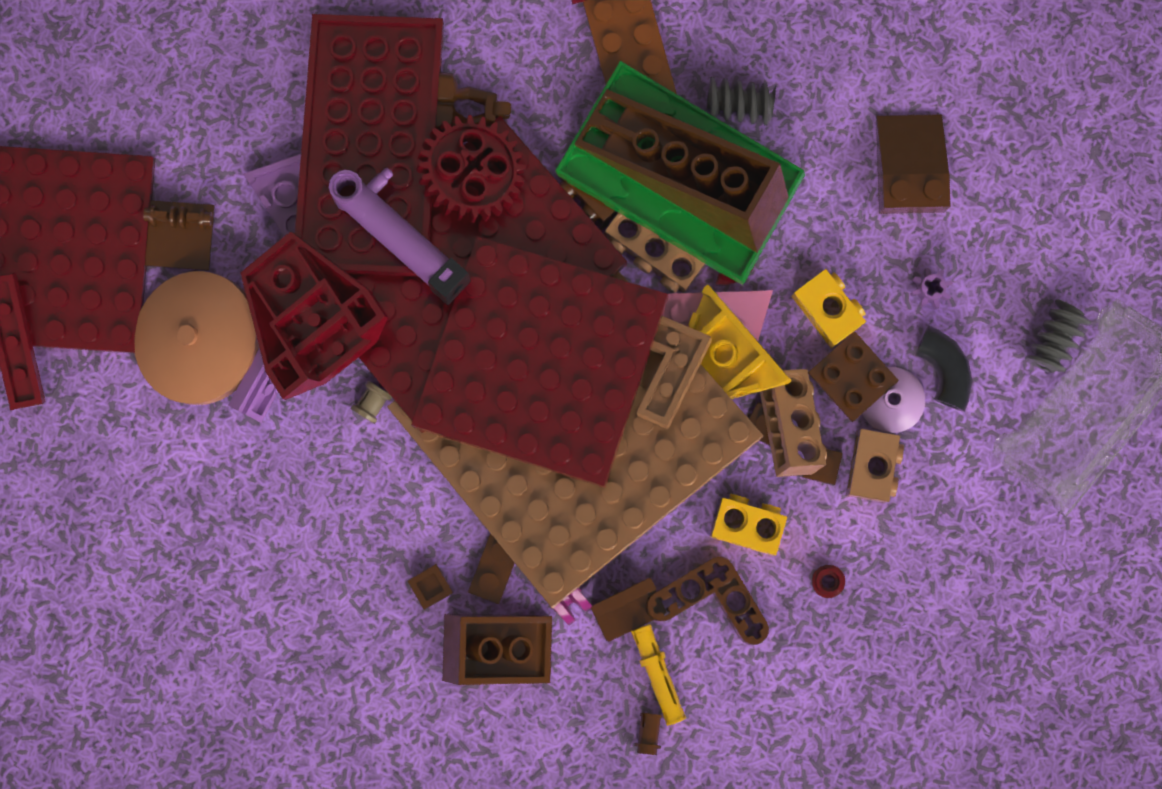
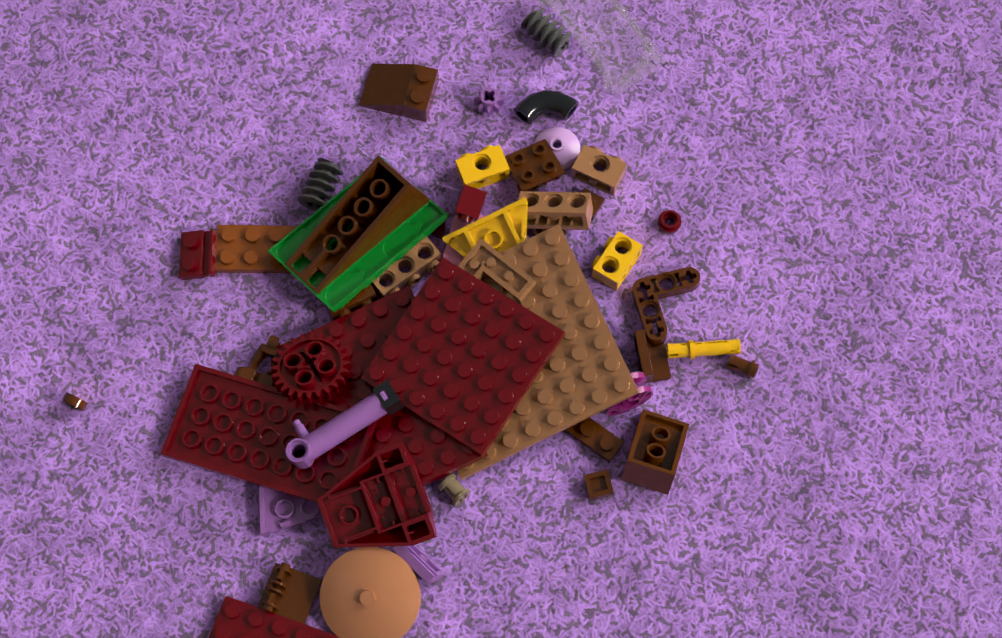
camera: 70 degrees left, 15 degrees down
(764, 307) = (469, 204): none -> dark red slope

